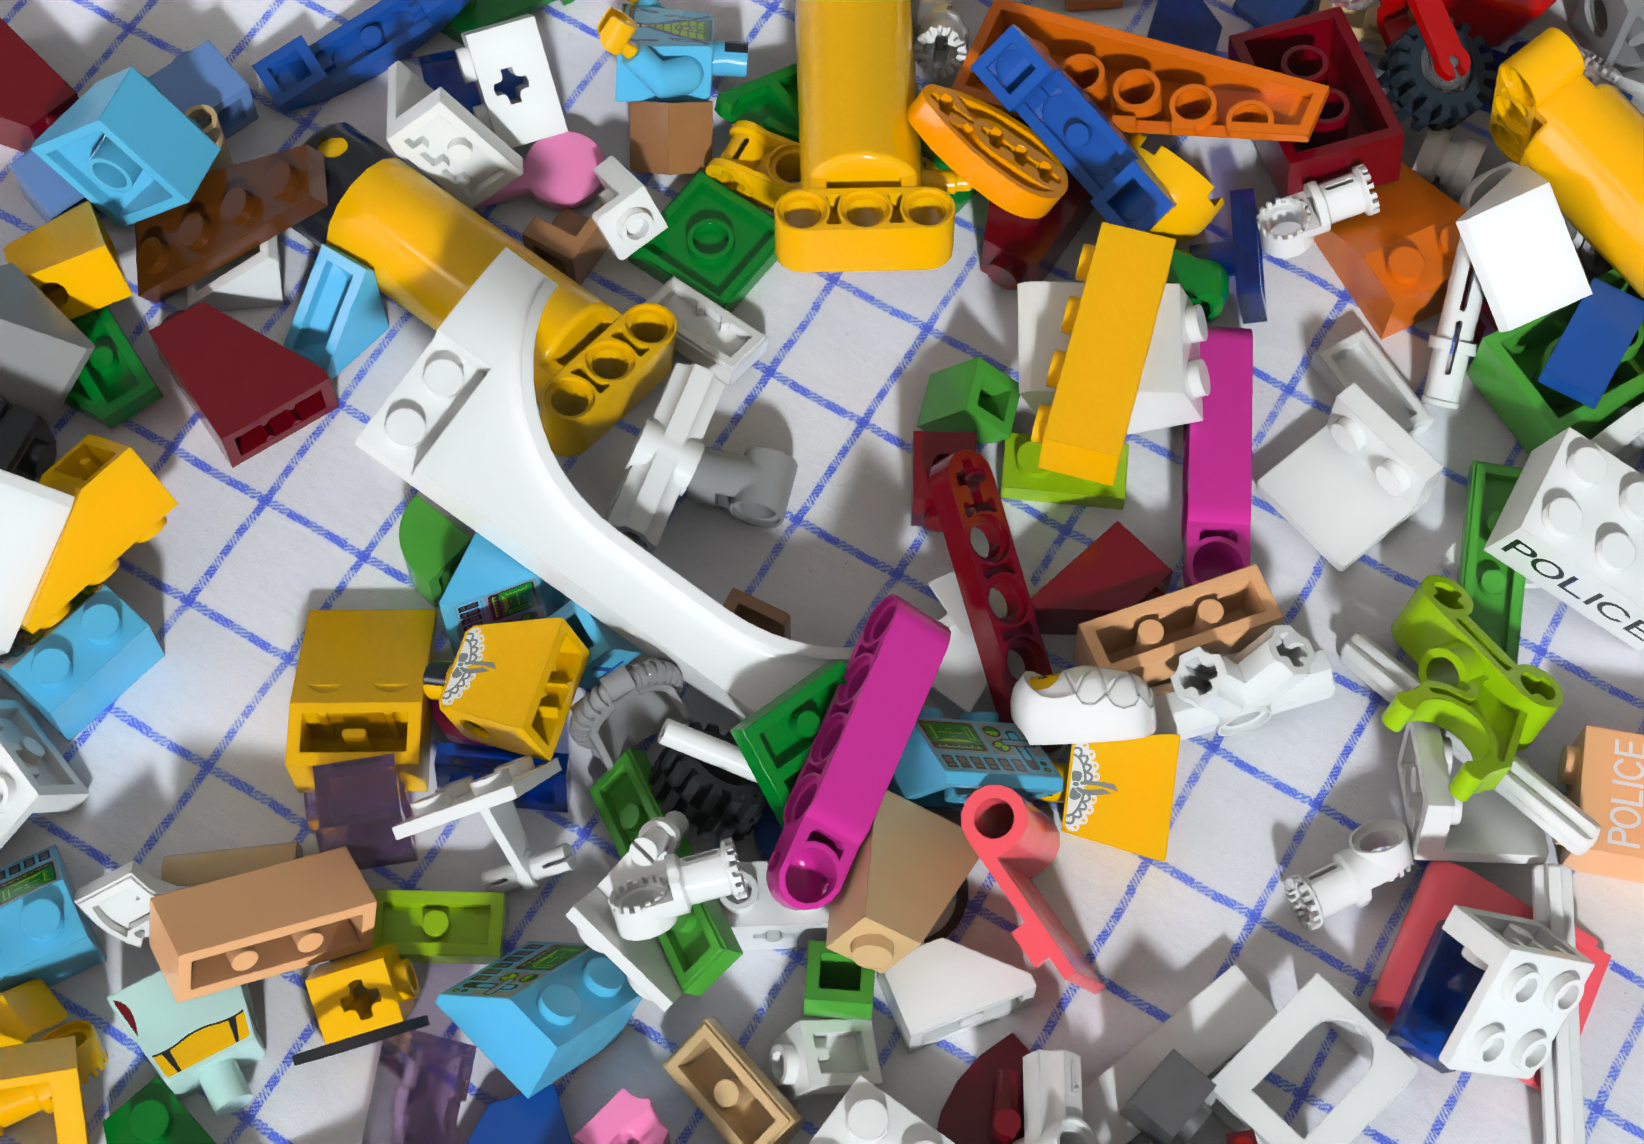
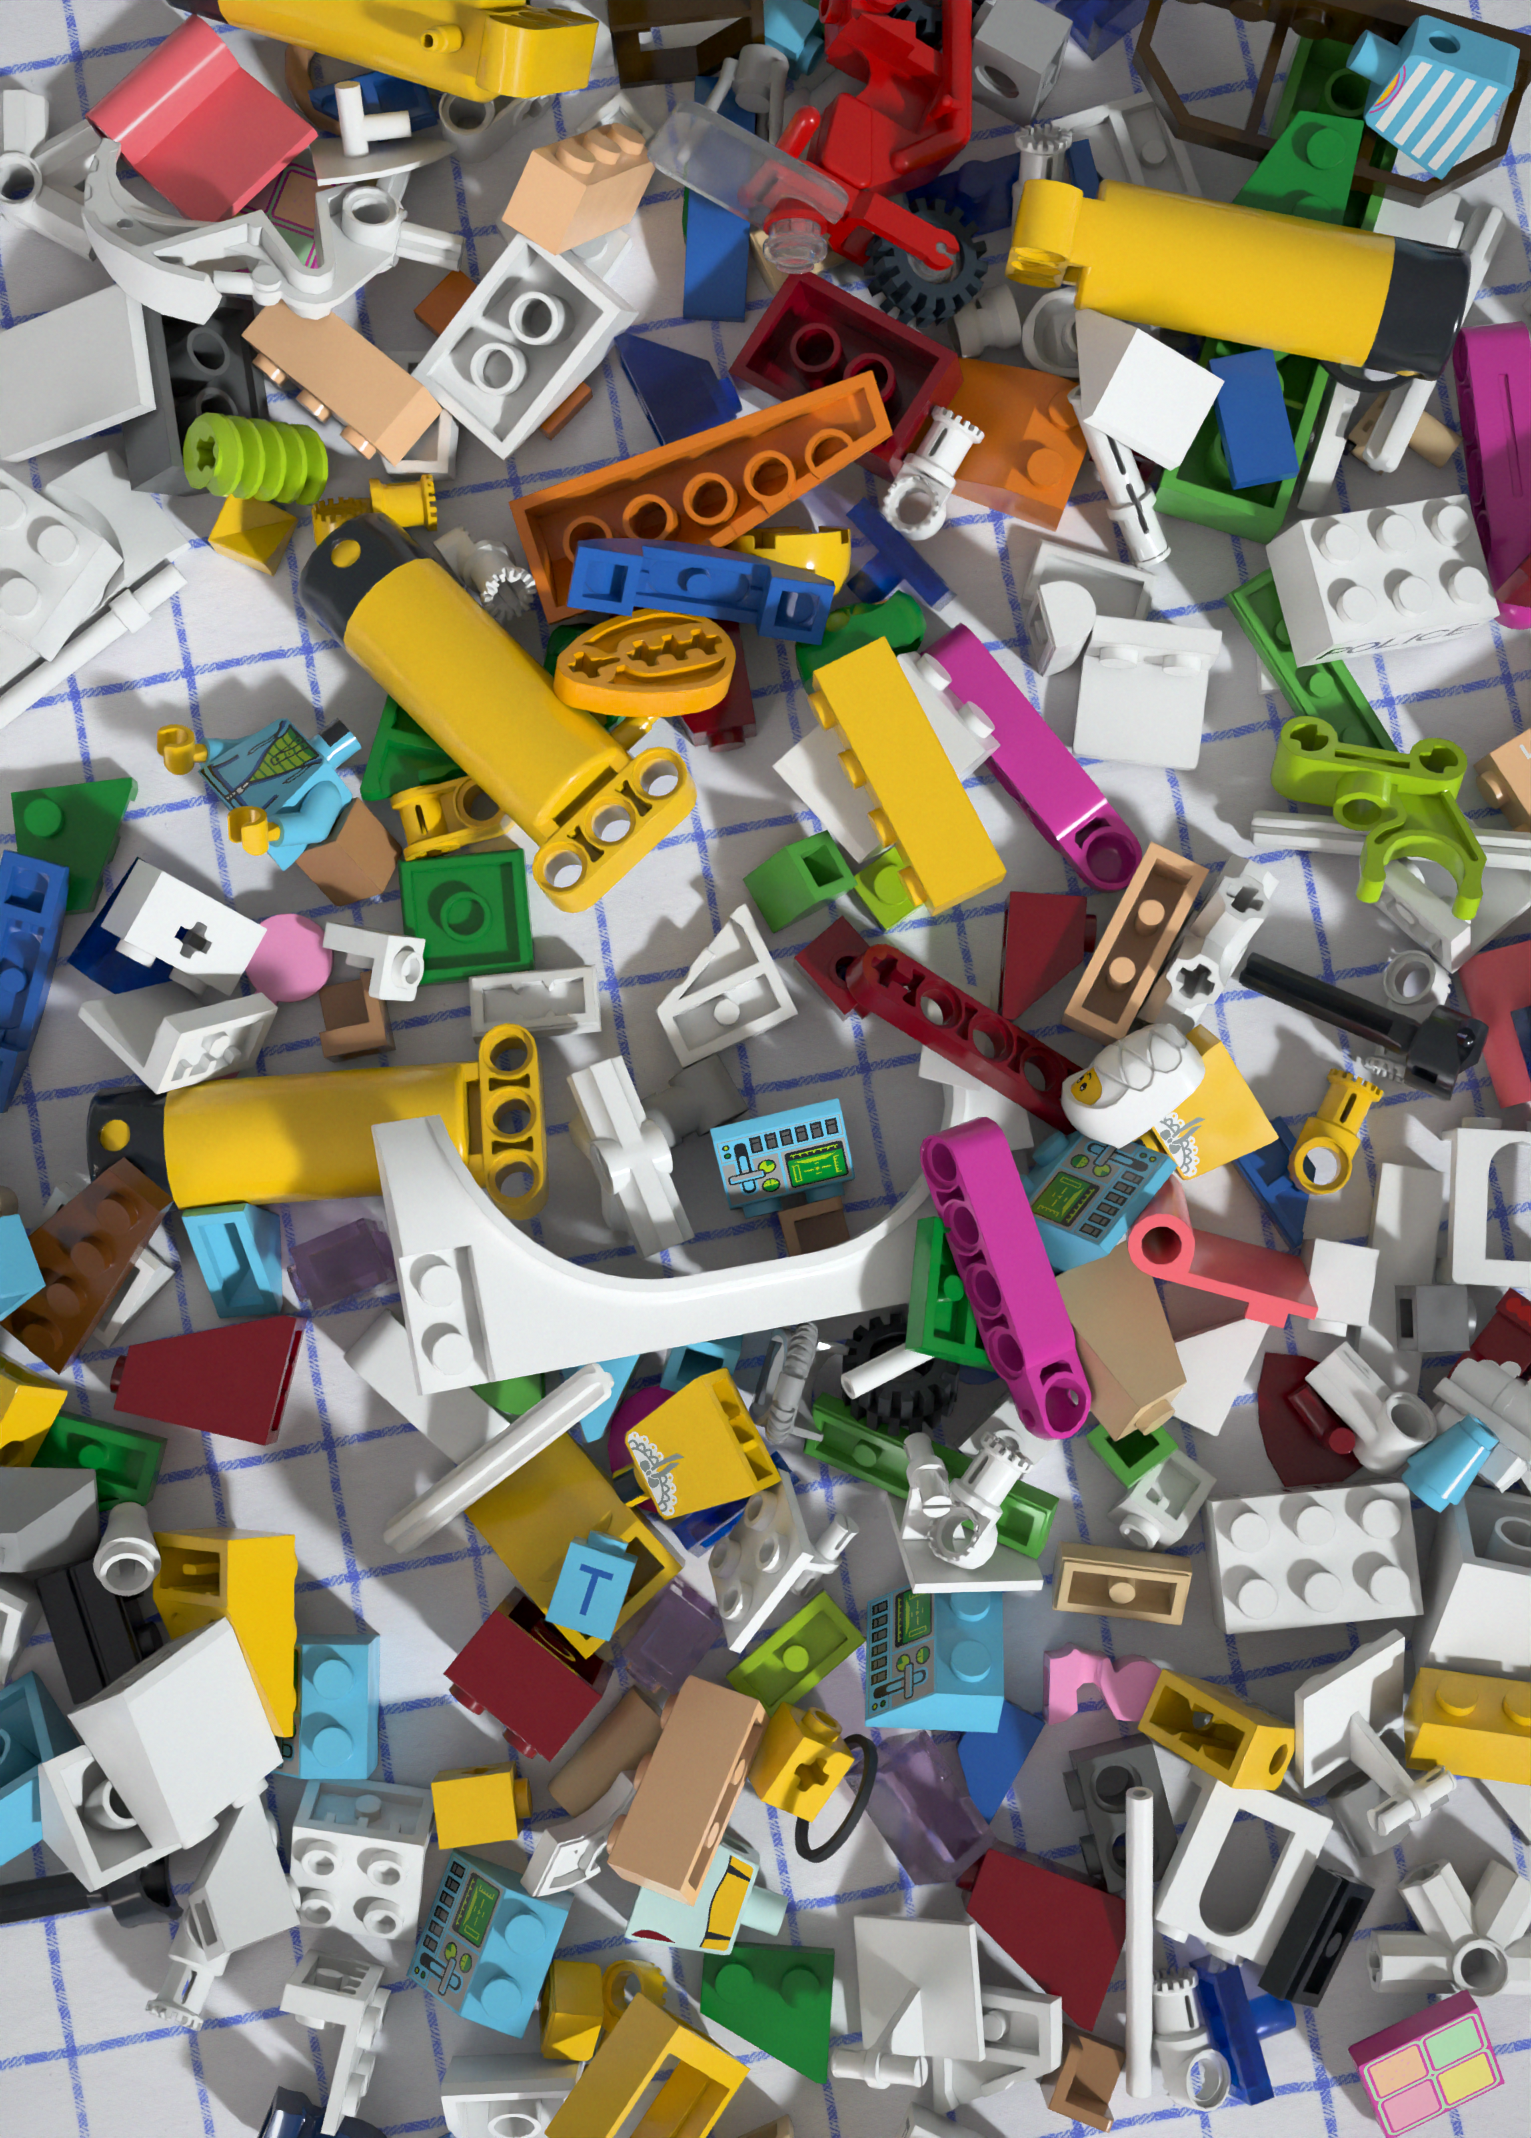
camera: 40 degrees left, 20 degrees up
(56, 423) = (127, 1553): none -> white cone
(106, 819) = (480, 1804): none -> yellow brick
(233, 732) = (528, 1677): none -> dark red brick
(342, 704) = (592, 1585): none -> medium azure brick
(366, 527) = (451, 1419): none -> white beam
(368, 573) = (499, 1458): none -> white axle
(382, 354) = (343, 1265): none -> clear purple brick
(778, 554) = (784, 1157): none -> slope
(844, 434) = (726, 994): none -> white wing
(1111, 1016) = (1341, 1283): none -> white brick
(1141, 907) = (1269, 1182): none -> blue tile
(1217, 904) = (1334, 1130): none -> yellow connector
(1321, 377) = (1059, 625): none -> white brick
(1342, 879) = (1431, 1048): none -> black piece

